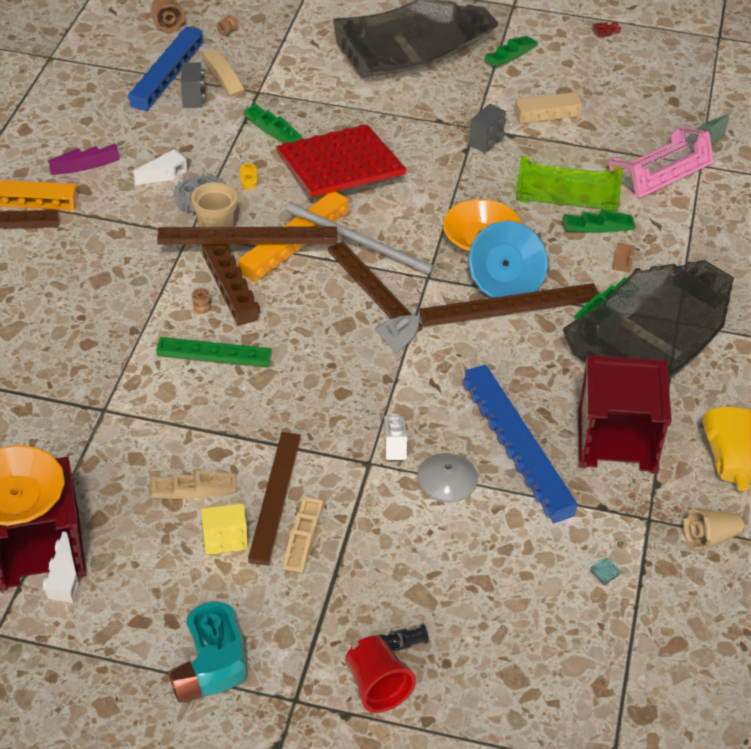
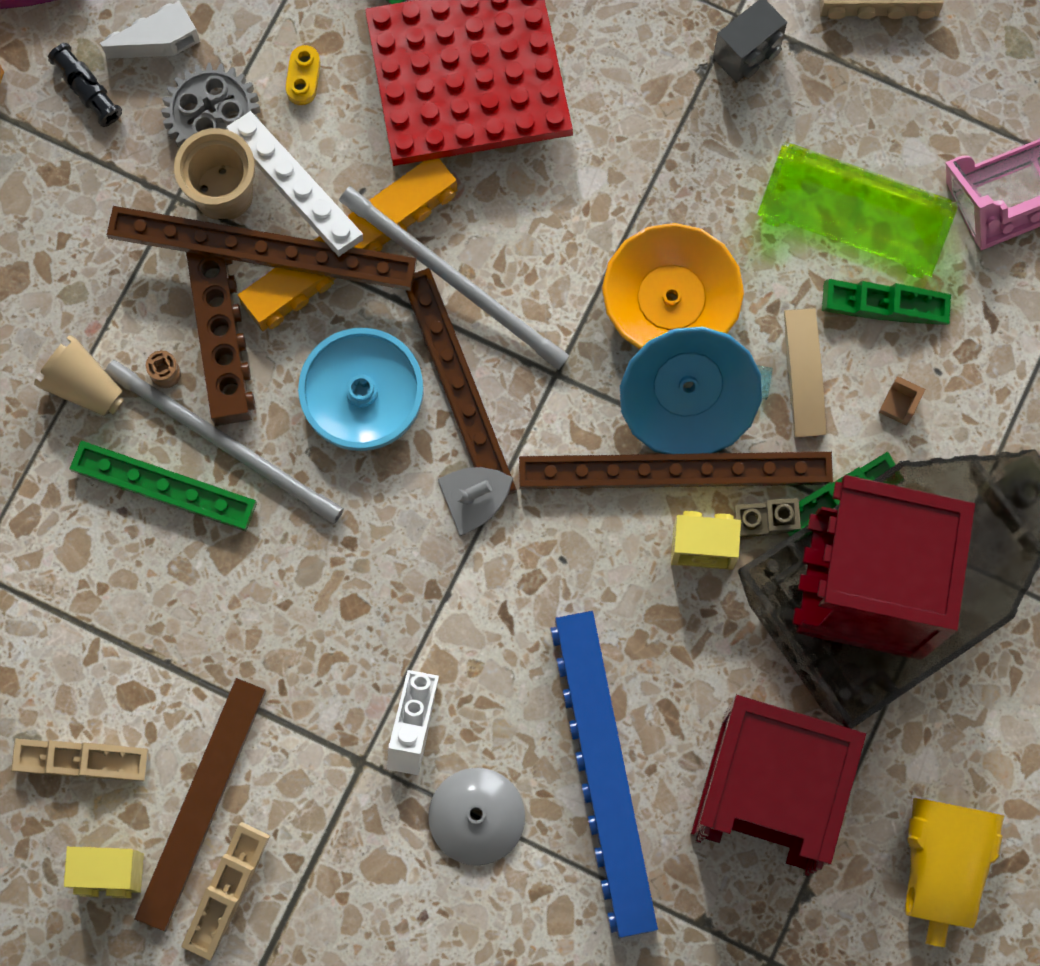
camera: 15 degrees right, 30 degrees up
(126, 192) = (84, 84): none -> black piece
(153, 308) = (80, 379): none -> tan cone
(269, 211) = (297, 185): none -> white plate
(307, 347) = (316, 502): none -> light grey piece
(320, 291) = (361, 389): none -> medium azure dish
(539, 325) = (705, 541): none -> light yellow brick
(563, 318) = (768, 518): none -> dark tan slope
(566, 254) = (805, 372): none -> tan slope
(648, 300) = (885, 568): none -> dark red container

